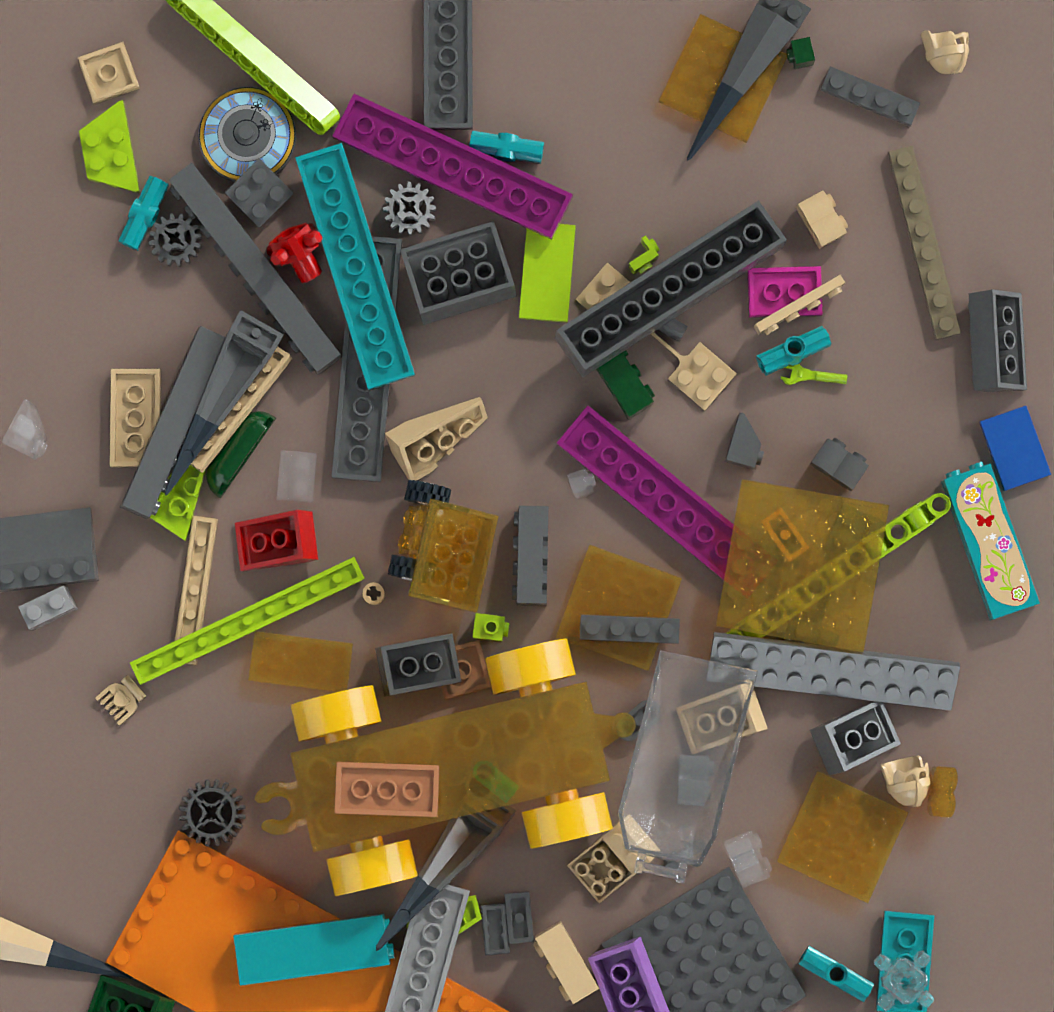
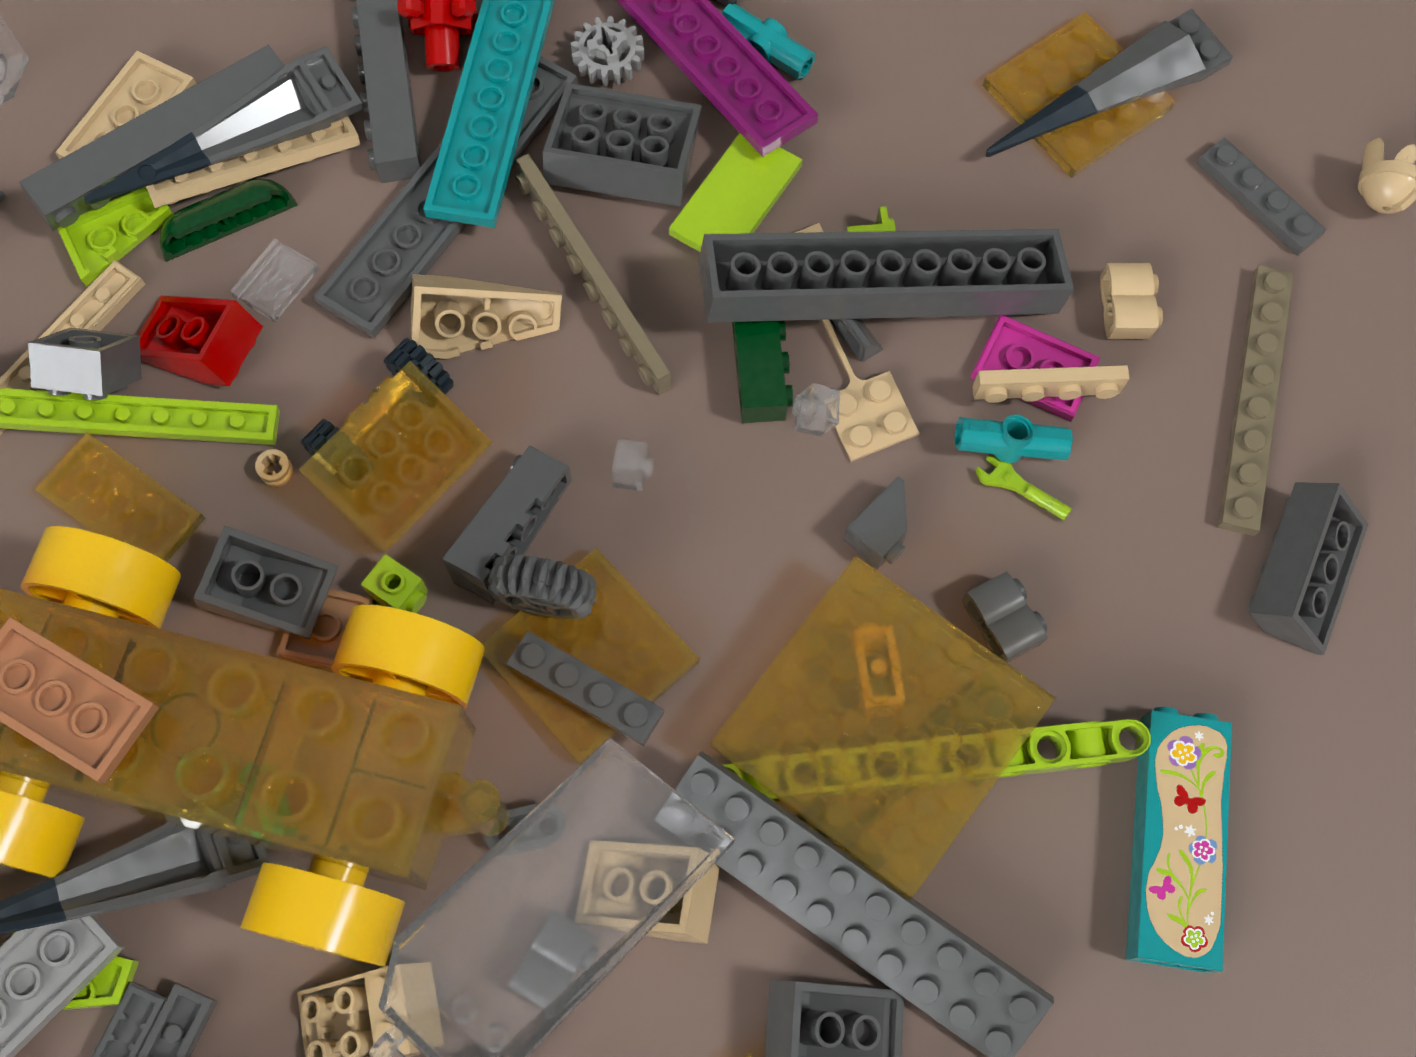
camera: 25 degrees right, 15 degrees down
(232, 592) = (84, 362): none -> dark grey brick
(477, 367) = (597, 283): none -> dark tan plate
(579, 589) = (542, 586): none -> dark grey gear
(650, 489) = (721, 520): magenta plate -> none
(670, 392) = (816, 409): none -> clear plate
(801, 53) = (1194, 105): dark green plate -> none
(1015, 448) = (1273, 726): blue tile -> none

